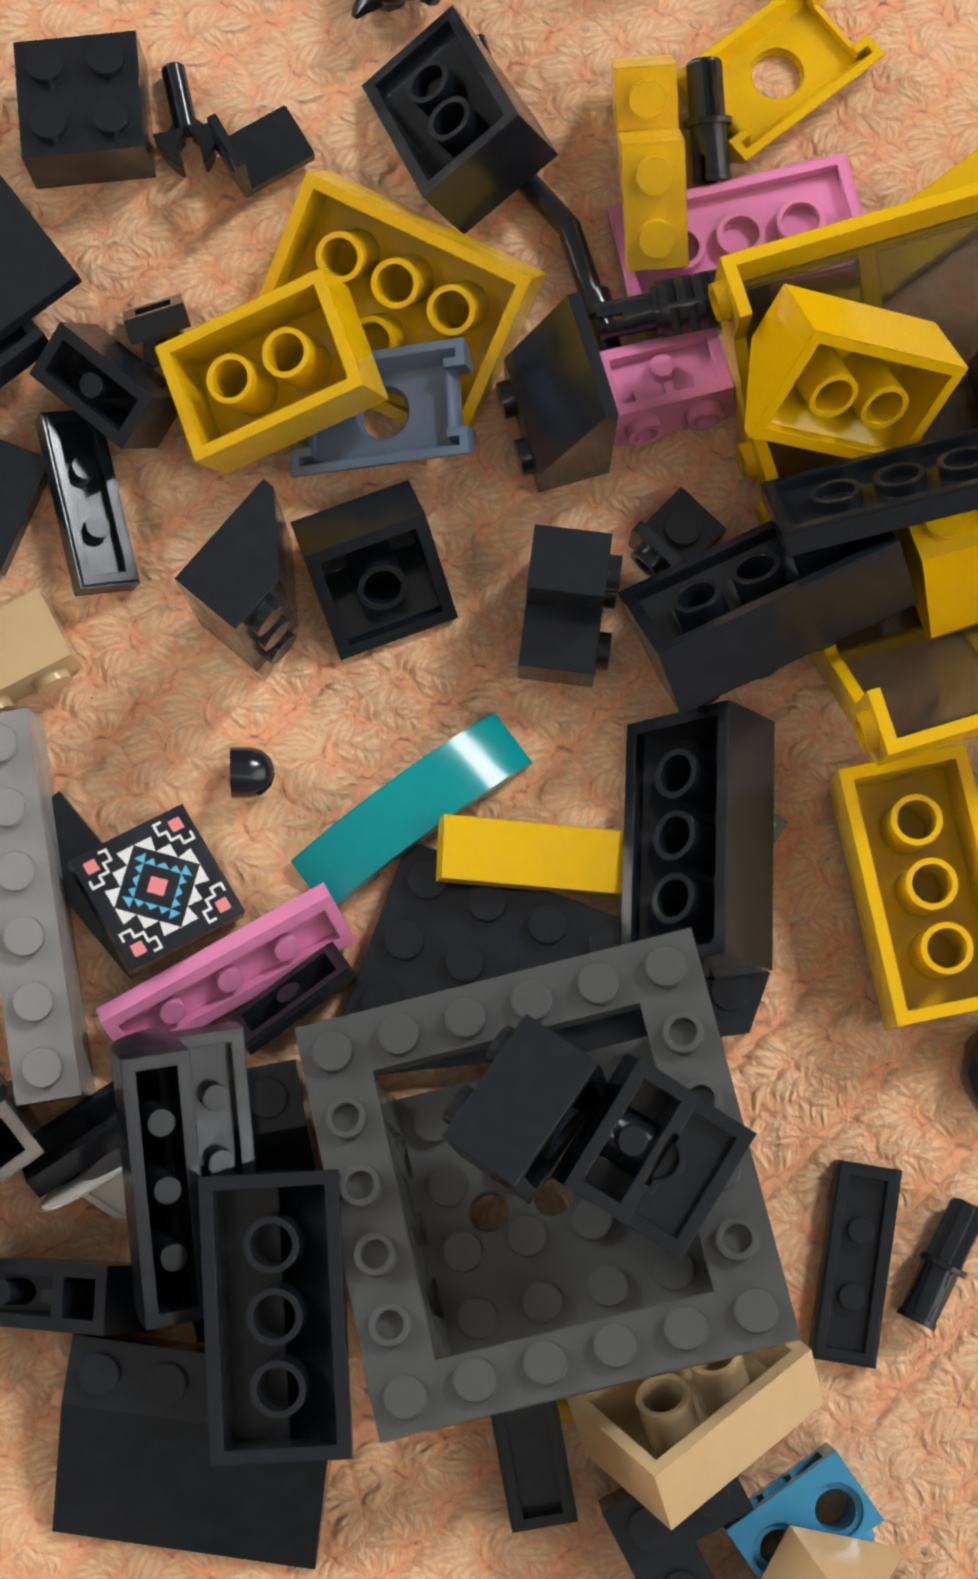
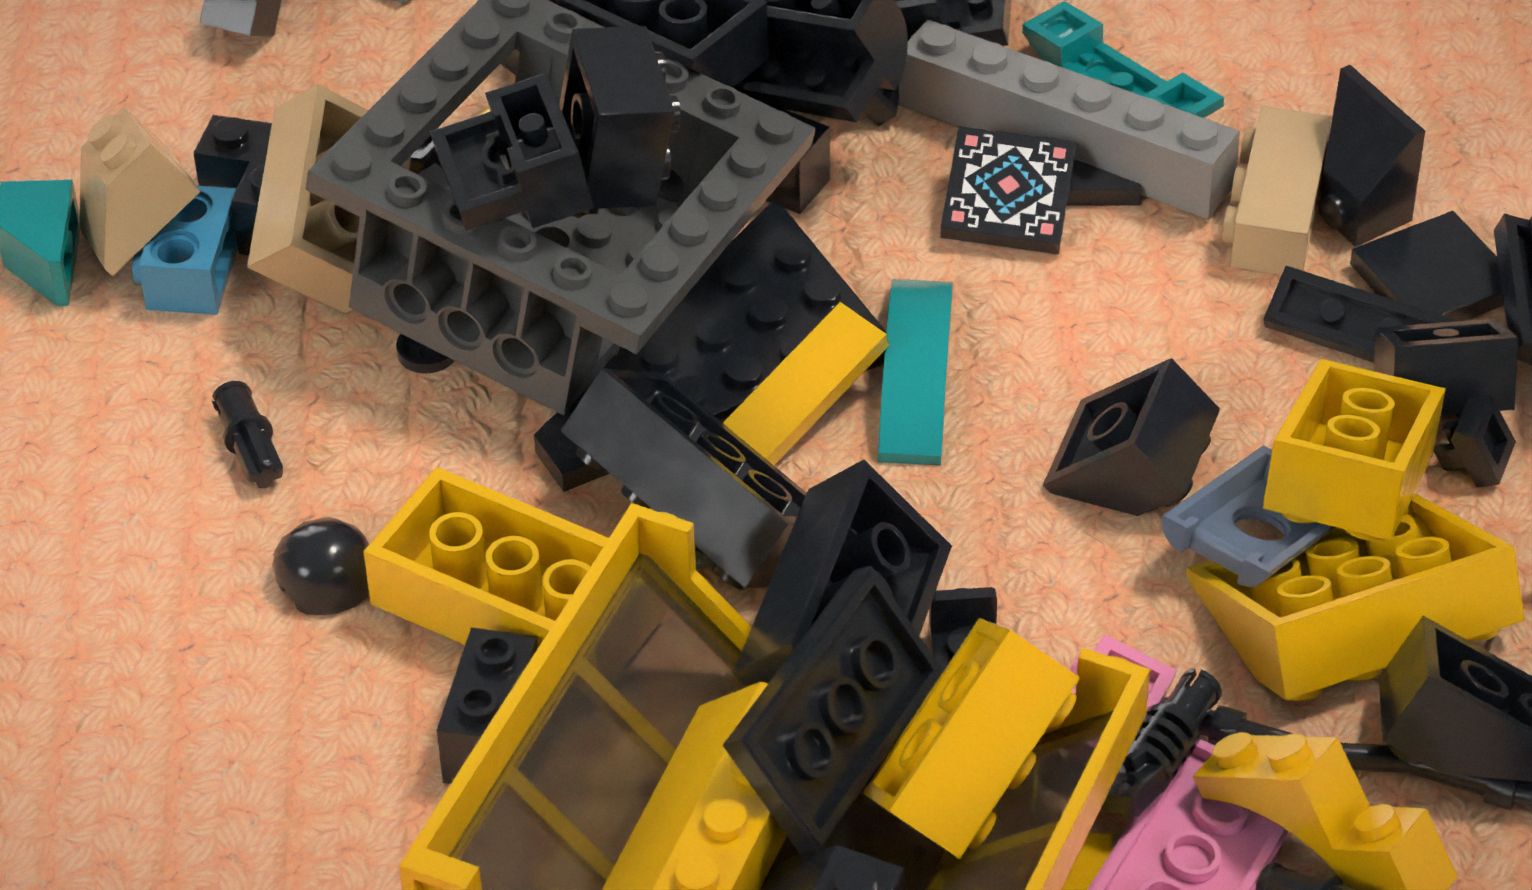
camera: 130 degrees right, 35 degrees down
(230, 969) = (904, 194): bright pink plate -> none
(246, 581) = (1180, 304): black slope -> none
(249, 772) = (1046, 288): black hinge -> none
(293, 996) = (846, 208): black slope -> none
(560, 399) = (1147, 596): black slope -> none
(565, 596) = (989, 514): black brick -> none
(855, 1263) = (310, 398): black tile -> none

